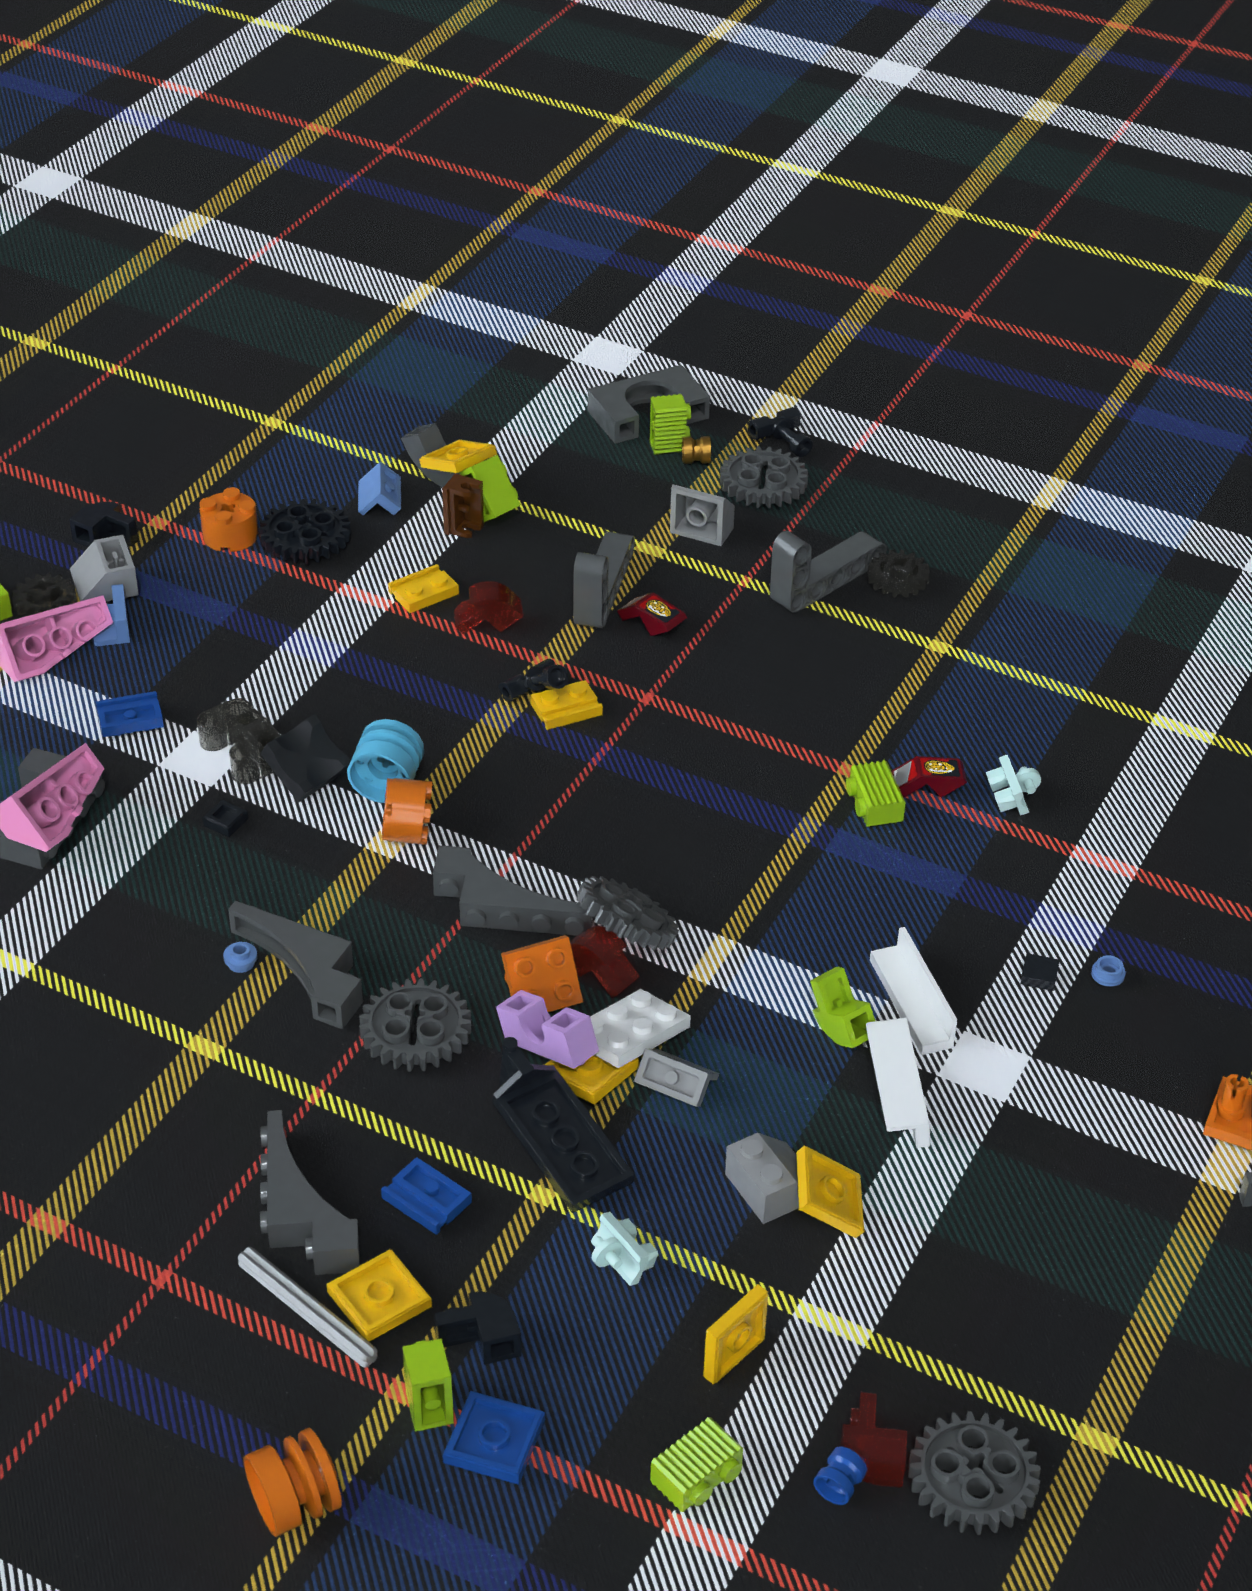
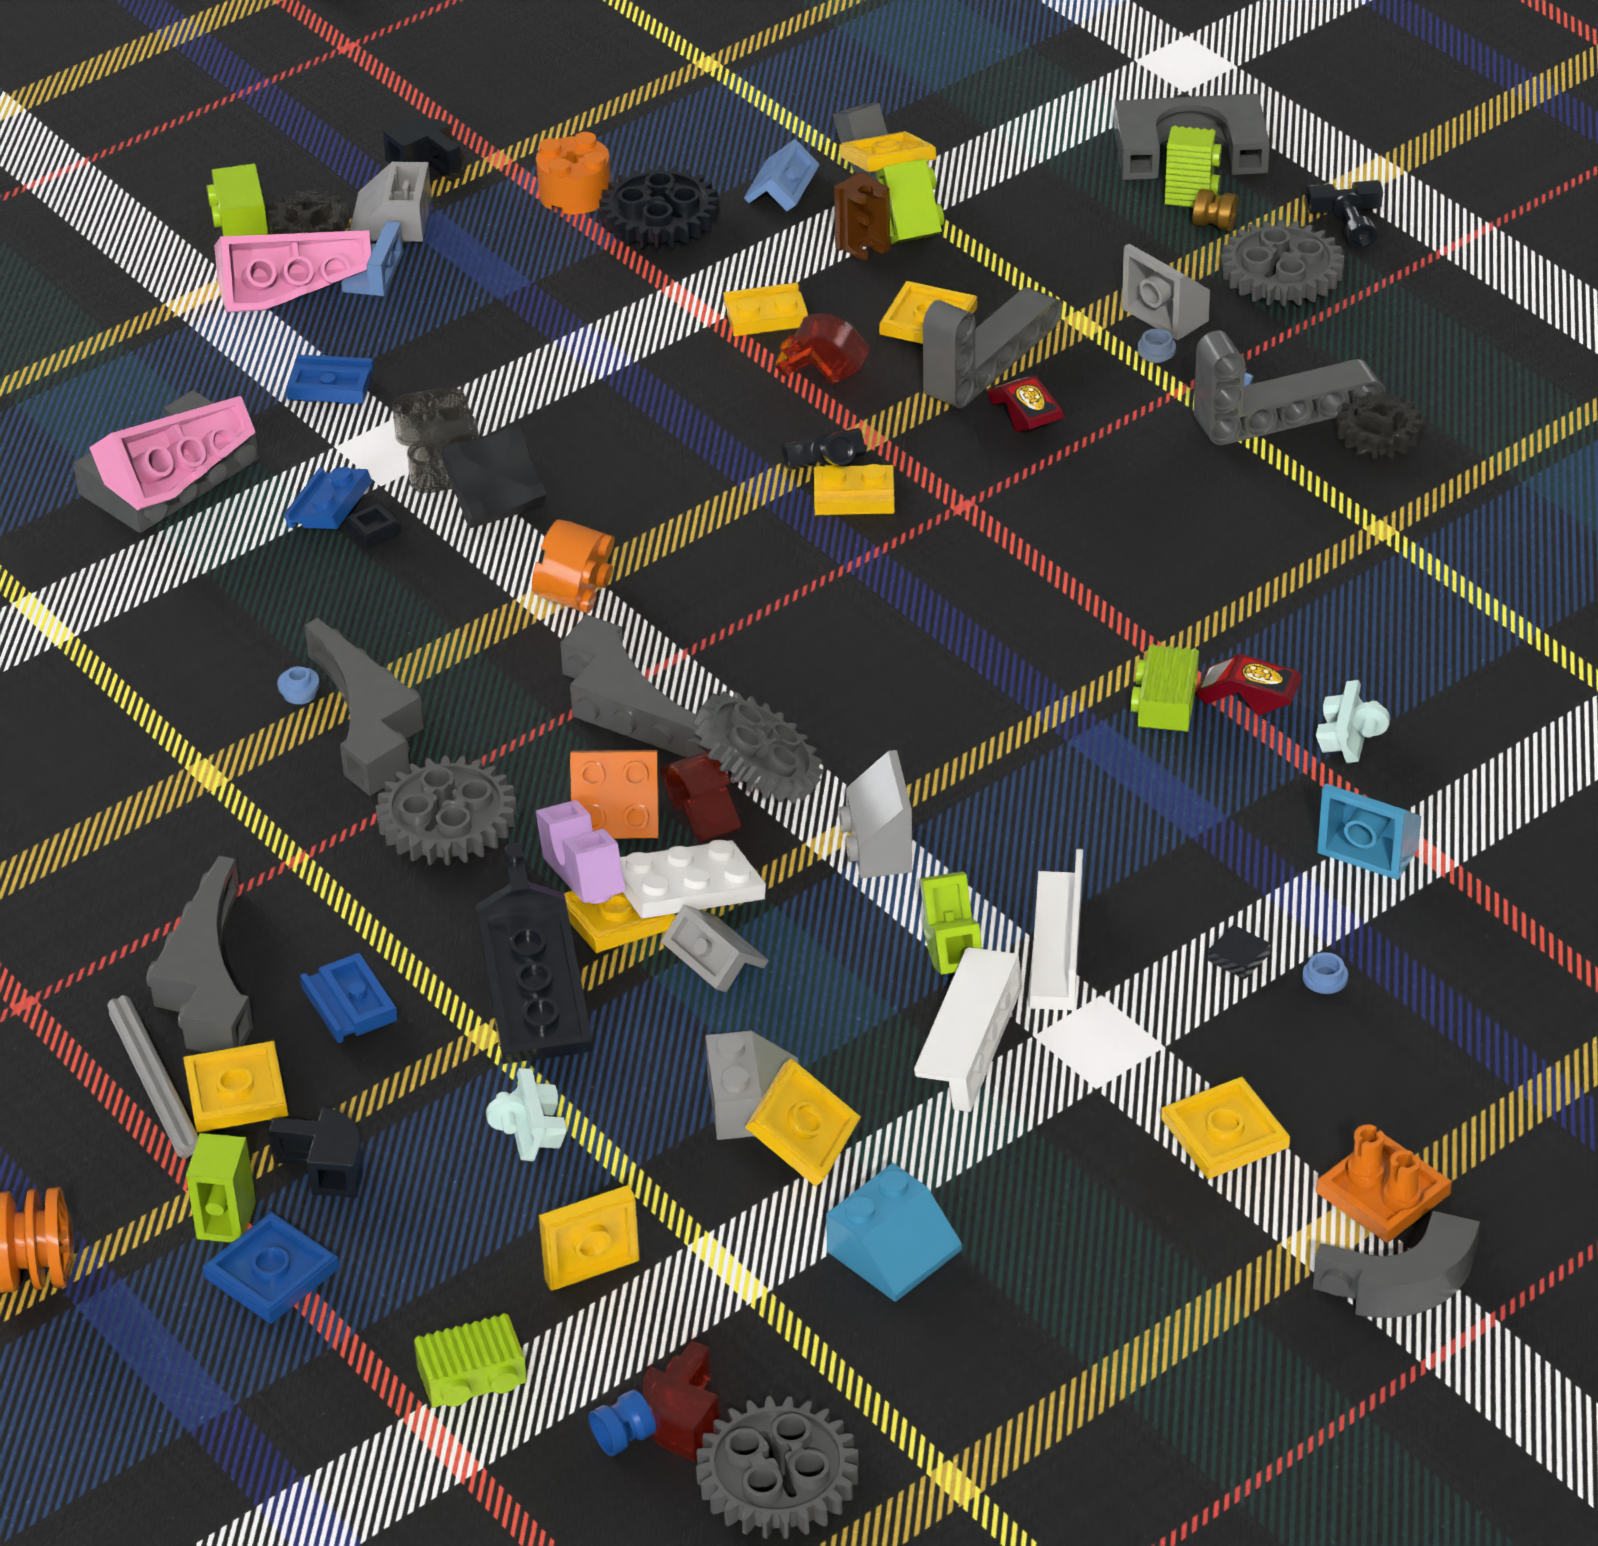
camera: 25 degrees right, 0 degrees up
(180, 805) = (328, 498): none -> blue plate
(384, 752) = (586, 491): medium azure wheel -> none
(544, 566) = (907, 311): none -> yellow plate
(714, 553) = (1156, 346): none -> sand blue plate
(744, 942) = (879, 820): none -> light grey slope
(942, 1258) = (891, 1232): none -> dark azure slope
(1077, 861) = (1367, 832): none -> dark azure slope
(1115, 1105) = (1225, 1127): none -> yellow plate

